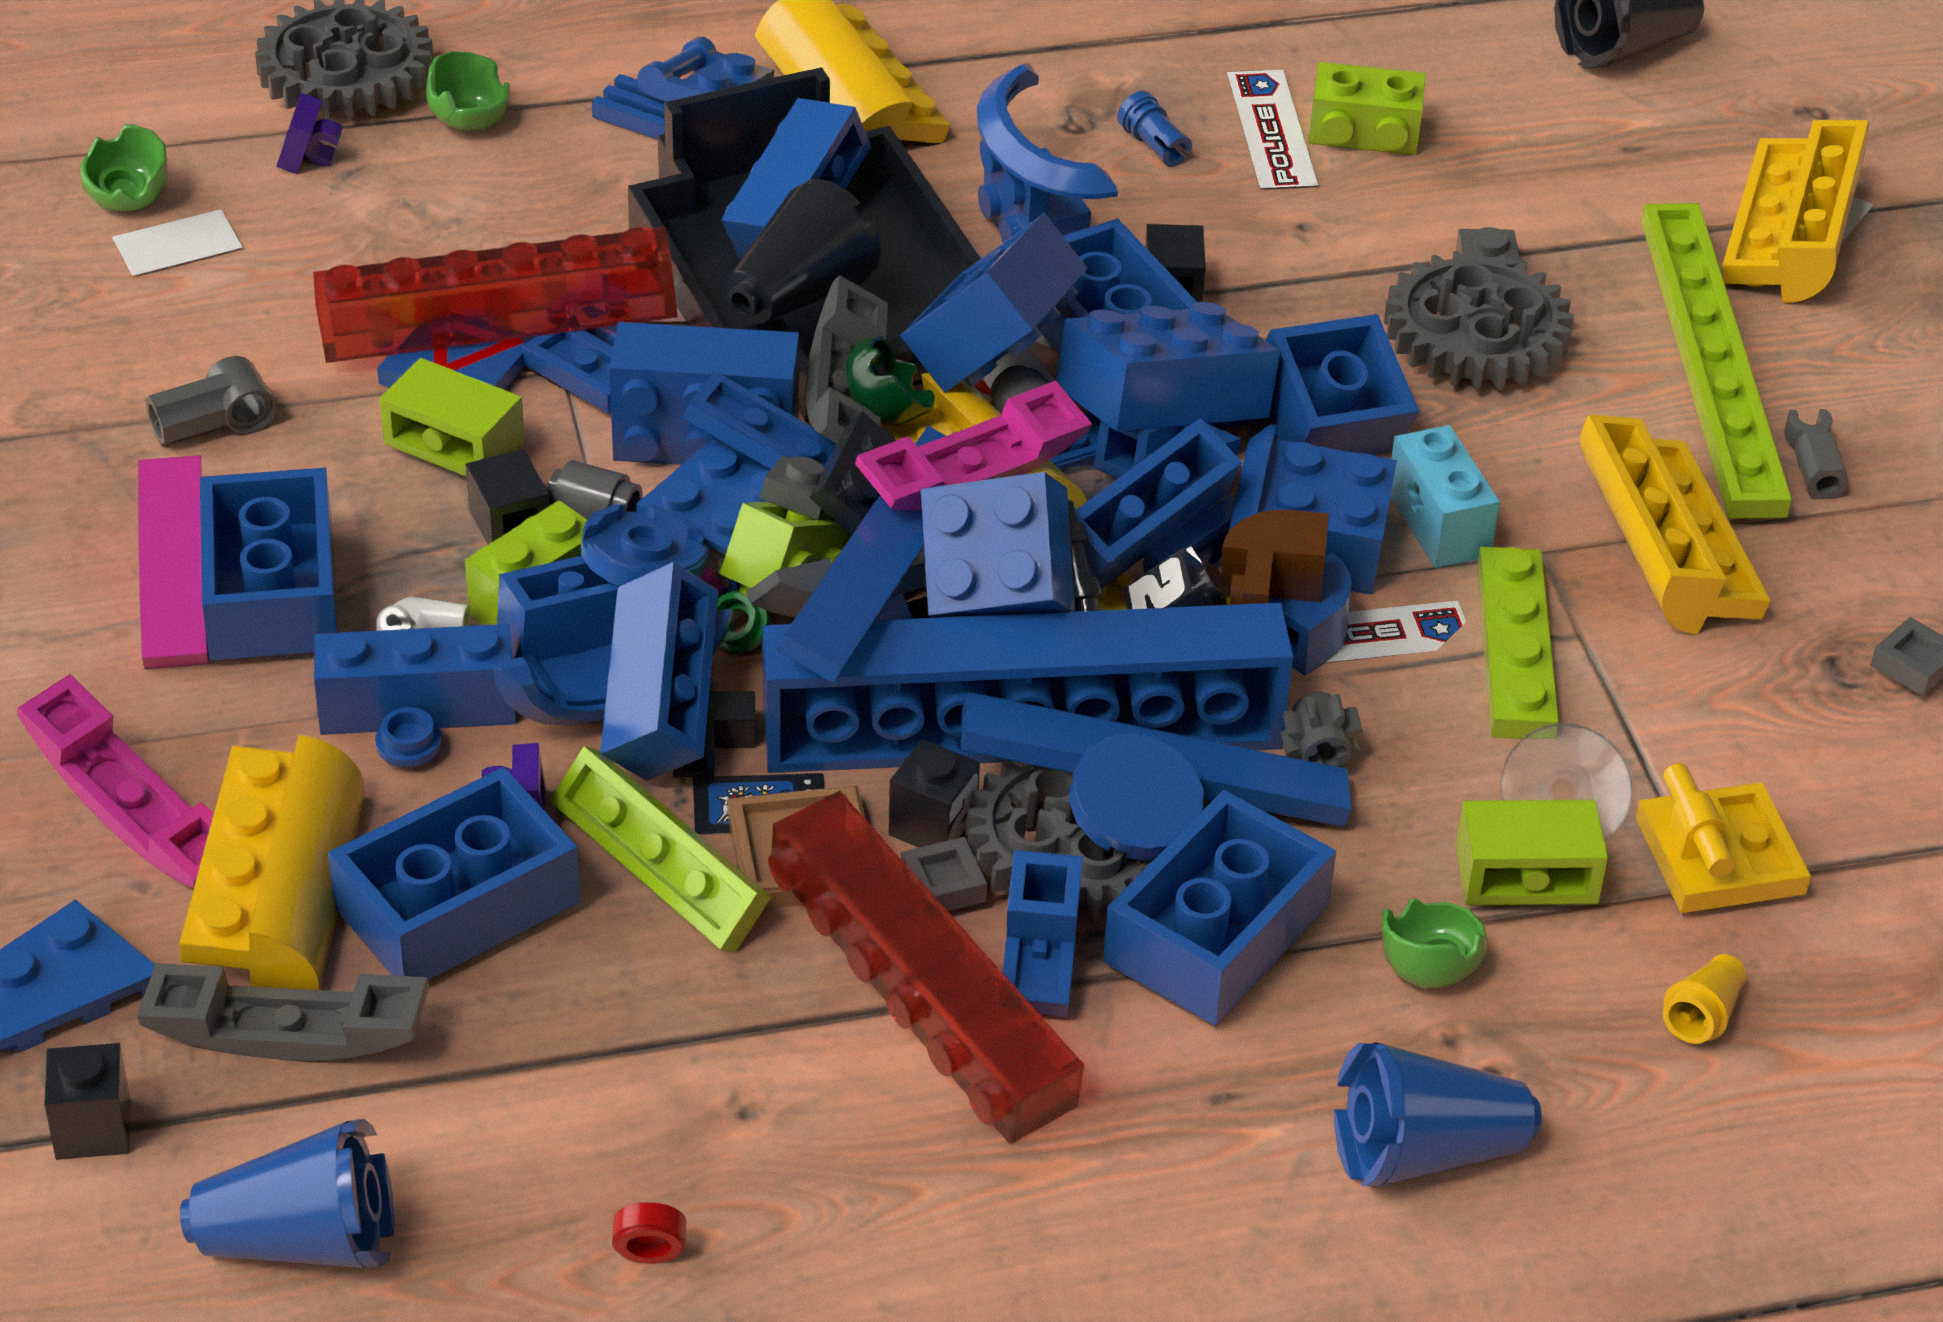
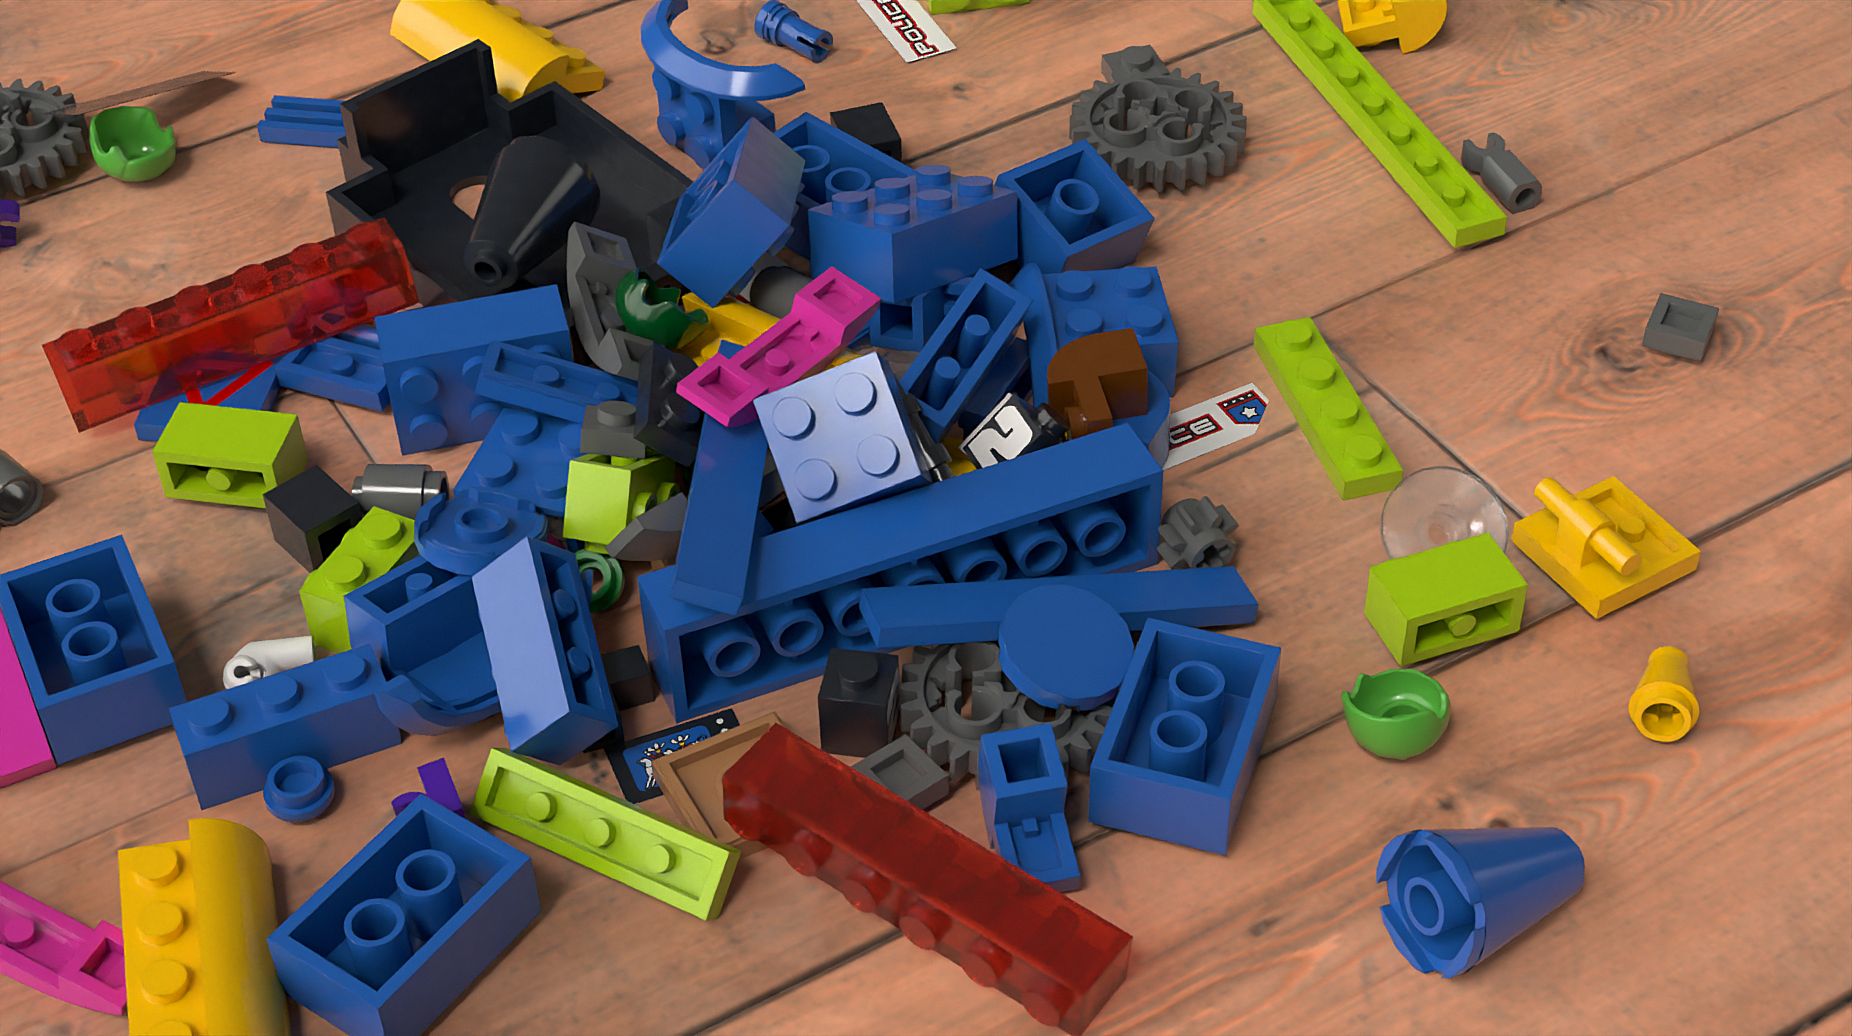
camera: 15 degrees left, 0 degrees up
(490, 41) = (138, 93): none -> sticker
(712, 70) = (361, 71): blue plate -> none
(810, 143) = (487, 116): blue brick -> none
(1443, 496) = (1207, 290): medium azure brick -> none
(1672, 524) = (1414, 264): yellow brick -> none

